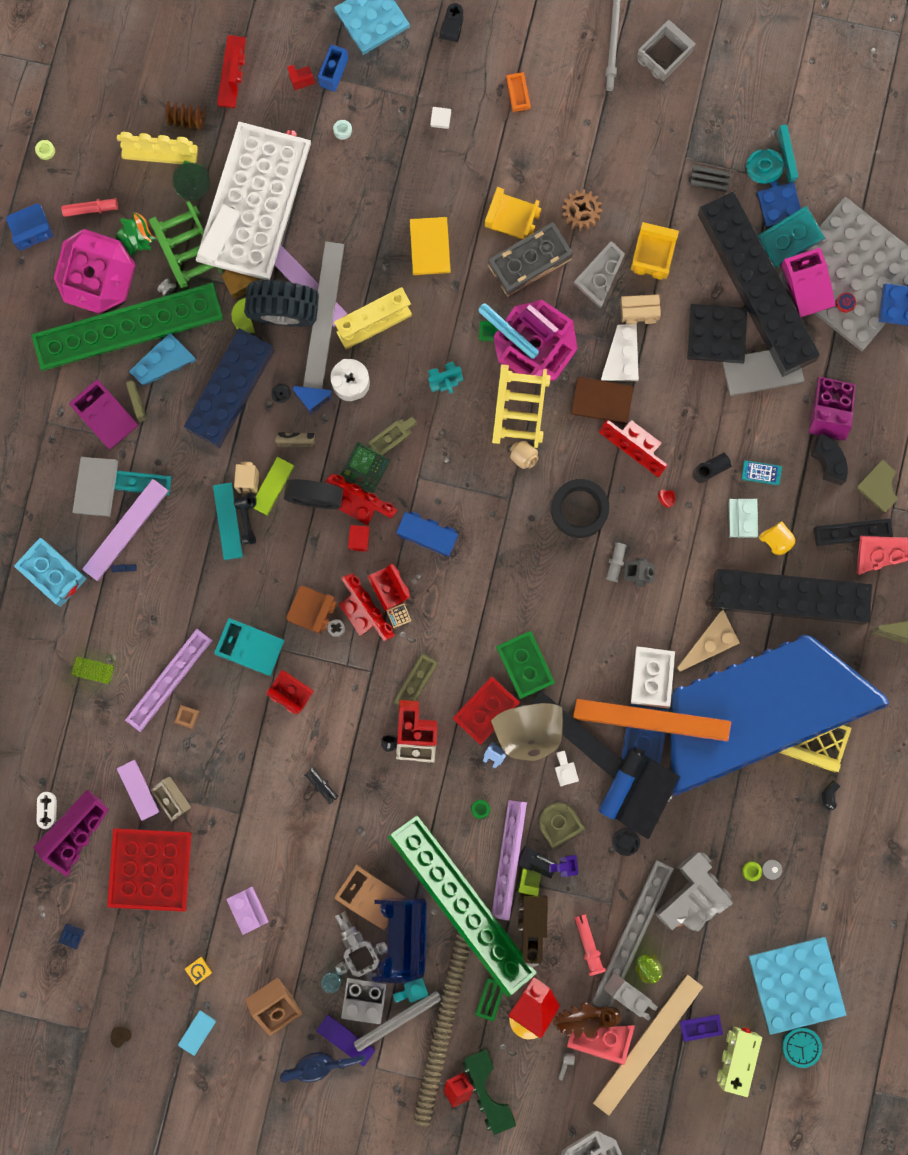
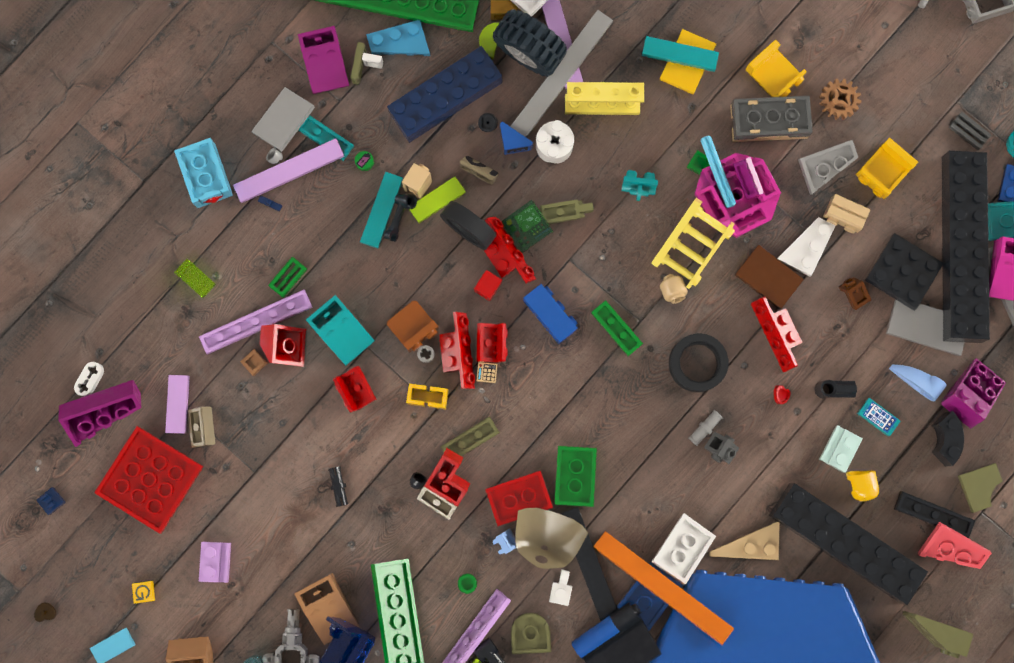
camera: 25 degrees right, 0 degrees up
(105, 524) = (274, 156): none -> light grey hinge
(147, 392) = (372, 60): none -> white tile
(183, 626) = (298, 265): none -> green tile
(188, 485) = (364, 161): none -> green tile
(205, 686) = (283, 344): none -> red slope
(350, 667) = (419, 395): none -> yellow piece
(419, 242) = (680, 53): none -> teal tile
(492, 516) = (616, 328): none -> green plate
(685, 374) = (855, 292): none -> reddish brown bracket
(781, 422) = (925, 384): none -> light blue piece

